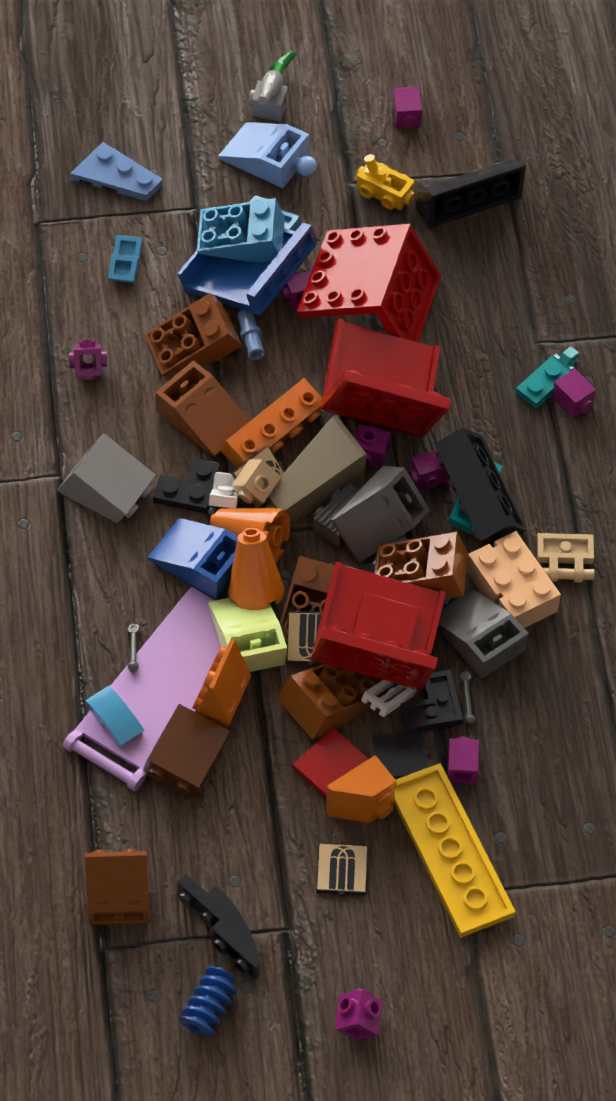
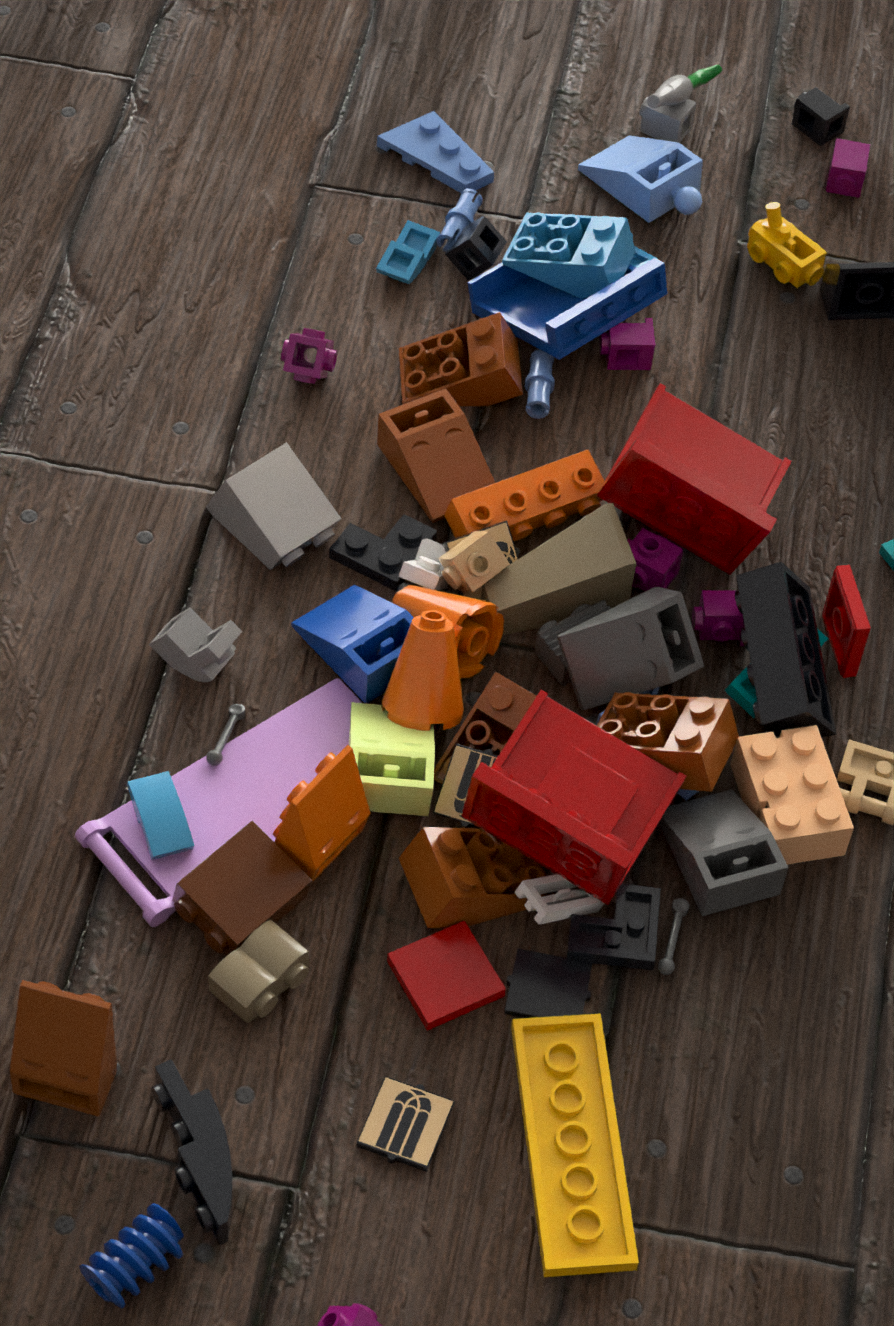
camera: 15 degrees right, 5 degrees down
(92, 594) = (194, 647): none -> light grey brick
(152, 224) = (459, 217): none -> medium blue pin
(173, 243) = (476, 248): none -> black brick
(216, 800) = (259, 971): none -> dark tan brick
(362, 793) = (468, 1021): orange slope -> none
(370, 273) = (740, 343): red bracket -> none
(374, 71) = (819, 116): none -> black brick
(462, 760) = (634, 1020): magenta brick -> none
(511, 452) = (845, 621): none -> red tile

